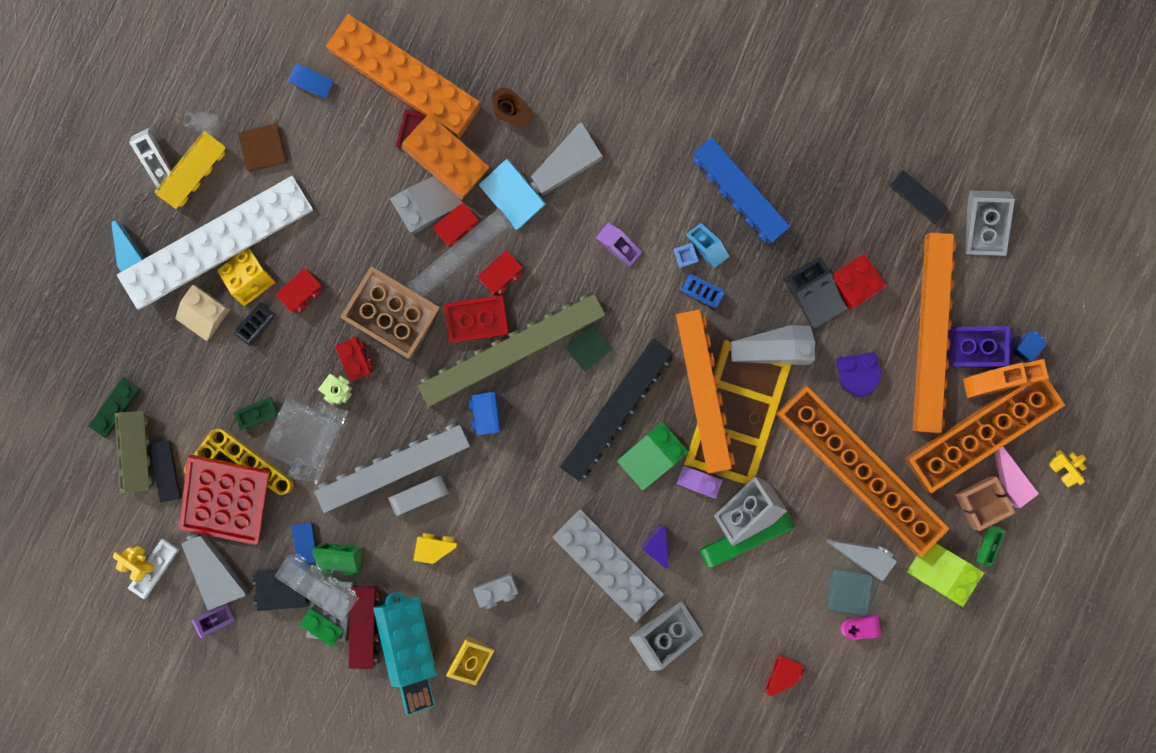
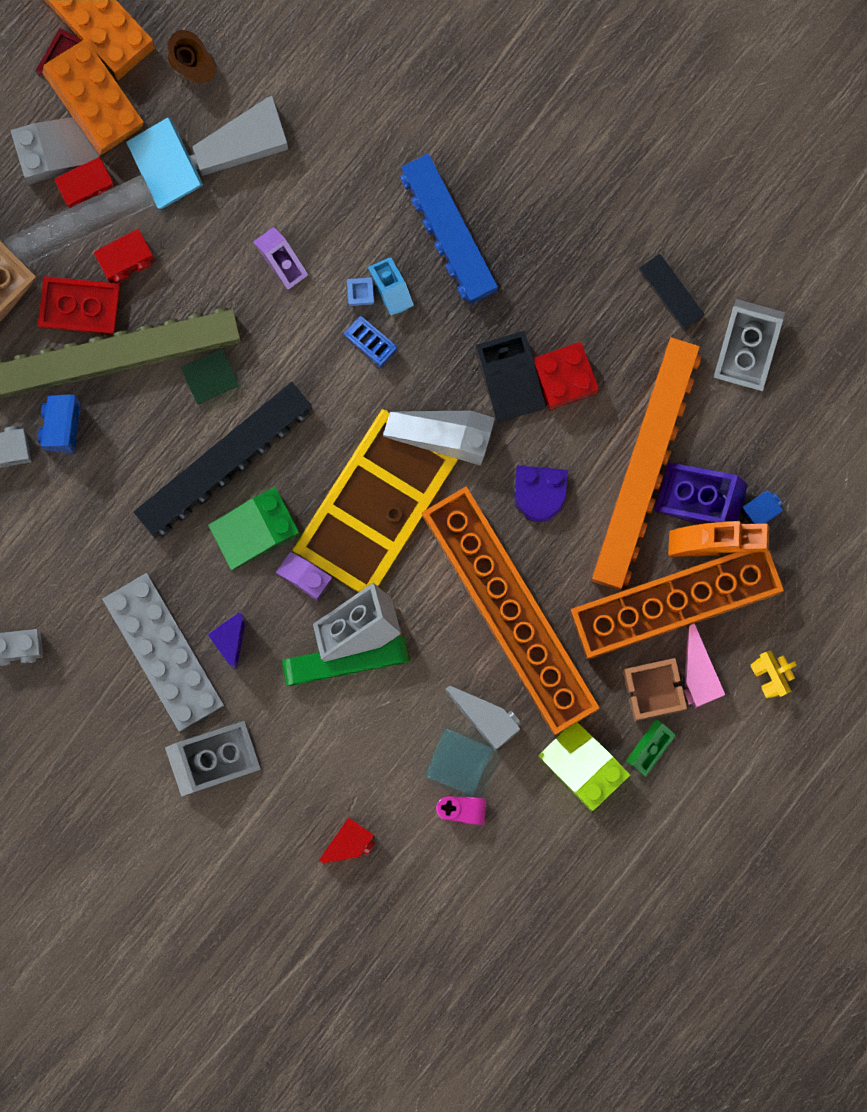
camera: 15 degrees right, 5 degrees down
(703, 390) = (336, 463): orange brick -> none

